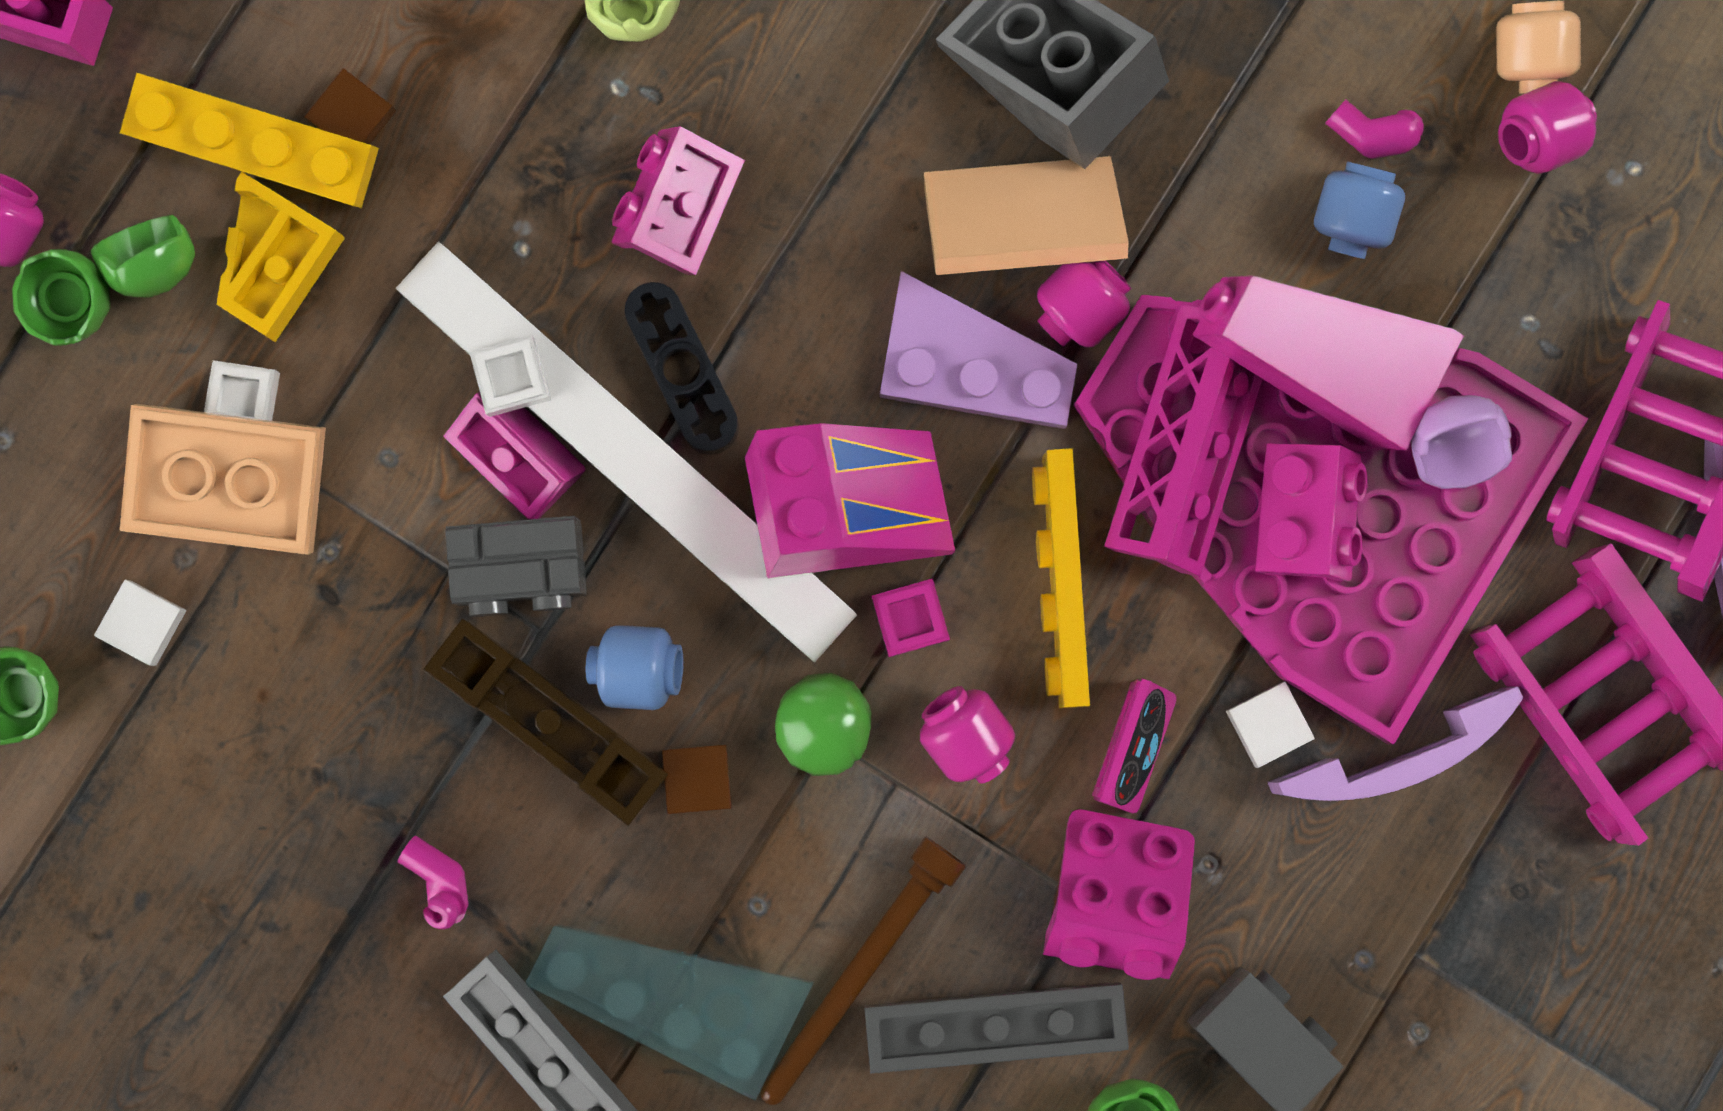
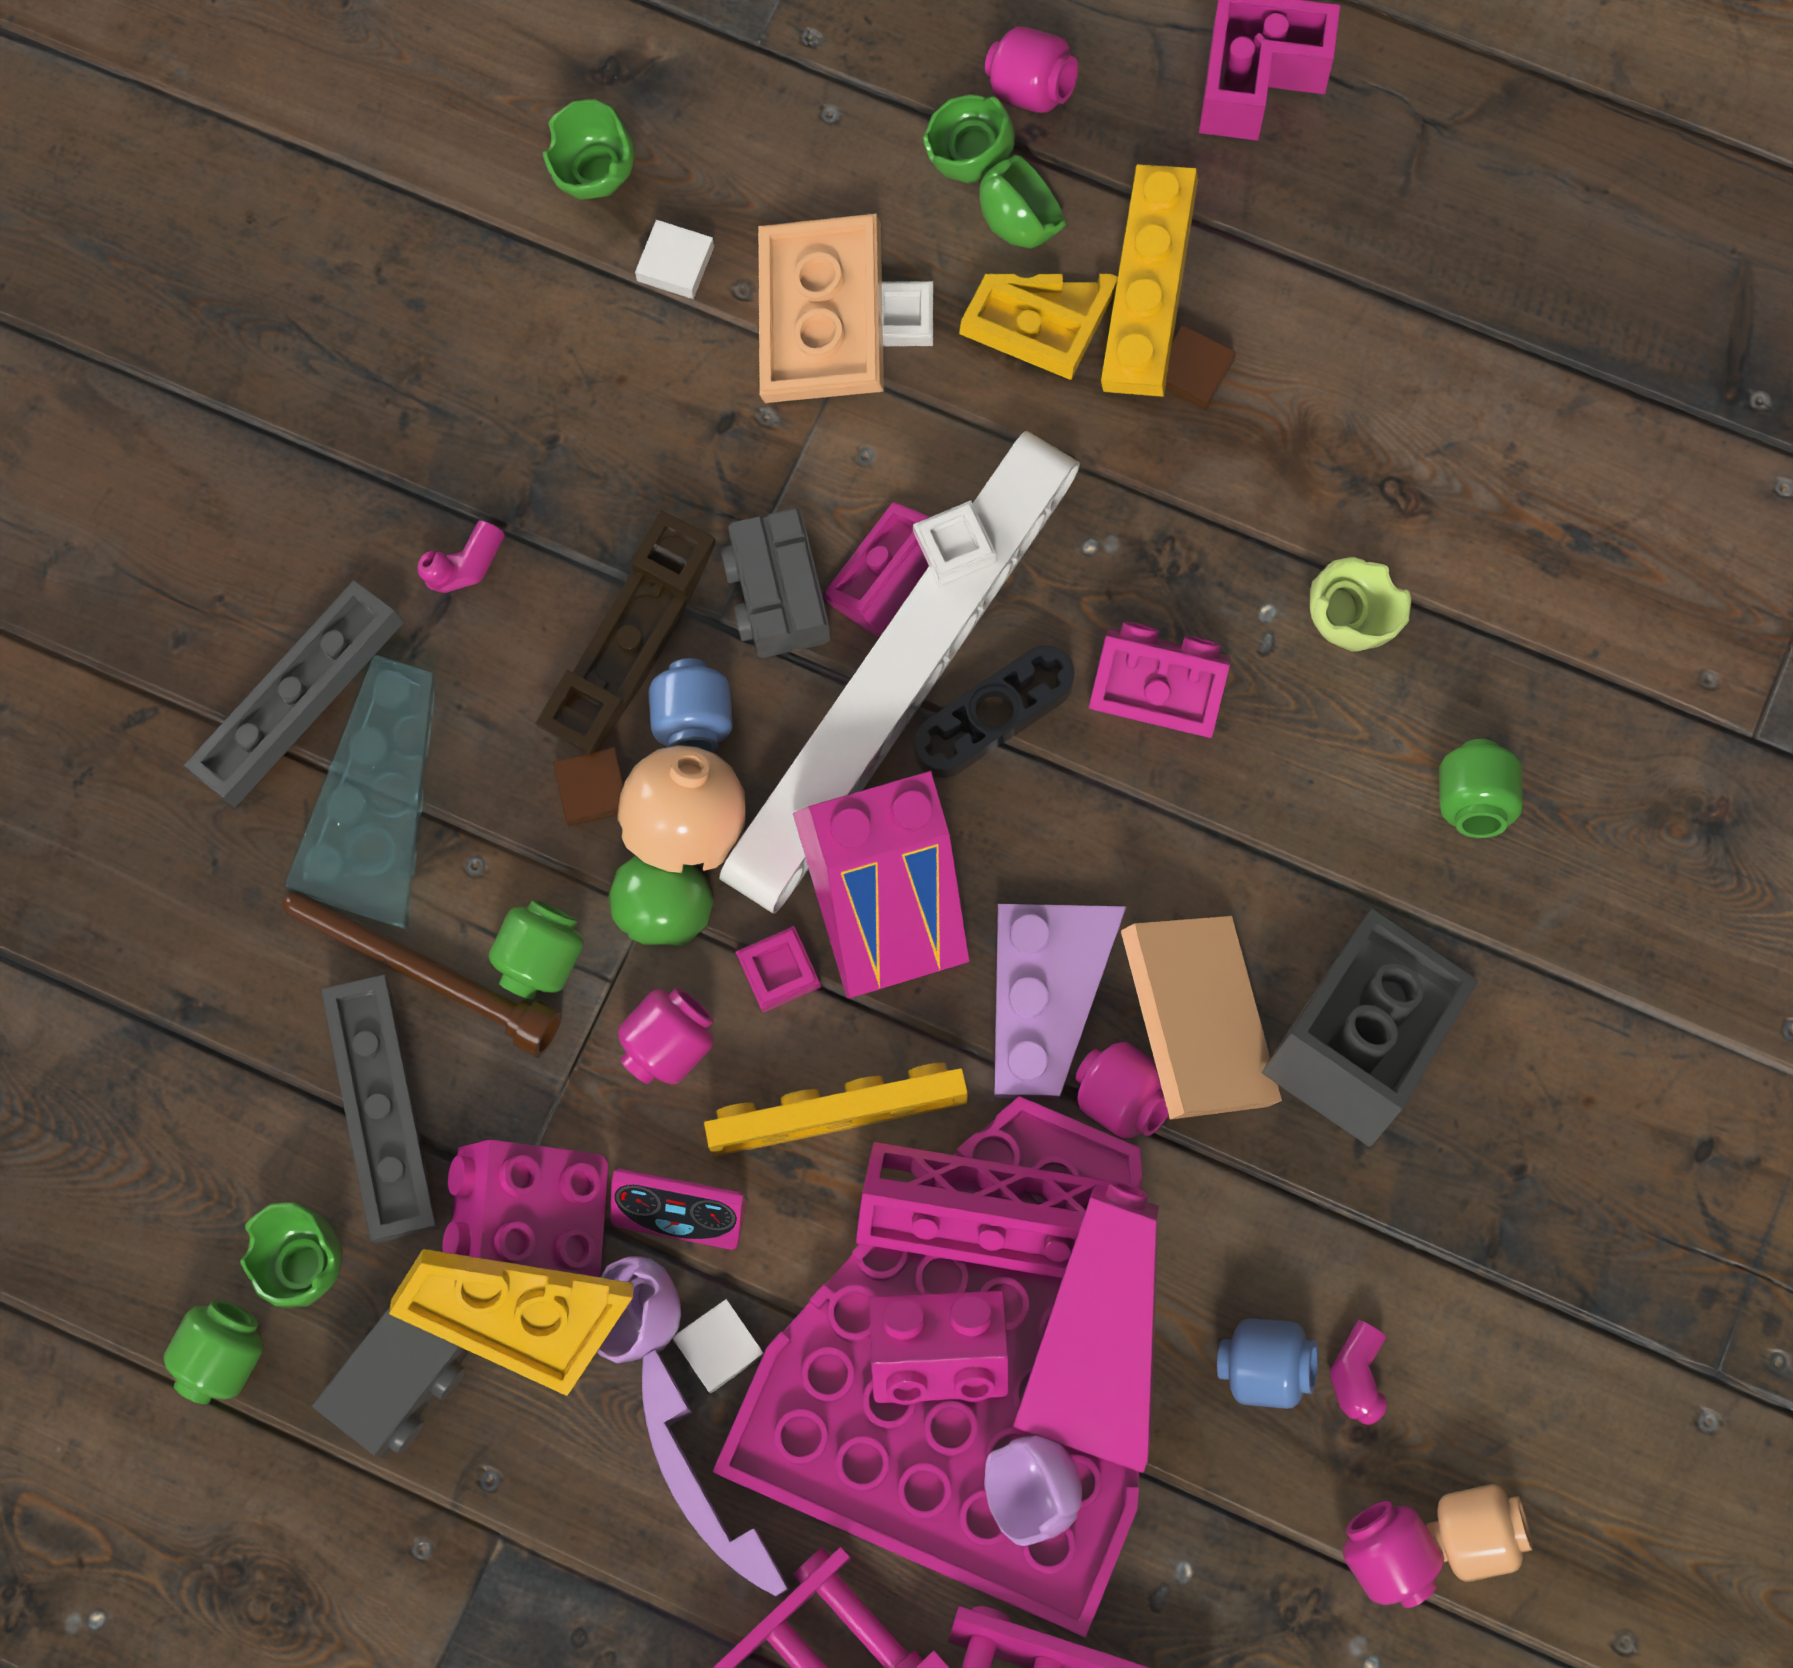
camera: 85 degrees right, 10 degrees down
(743, 689) = (682, 809): none -> light nougat cylinder
(860, 853) = (536, 949): none -> bright green head
(1227, 916) = (513, 1314): none -> yellow wing
(1232, 798) = (650, 1316): none -> lavender hair

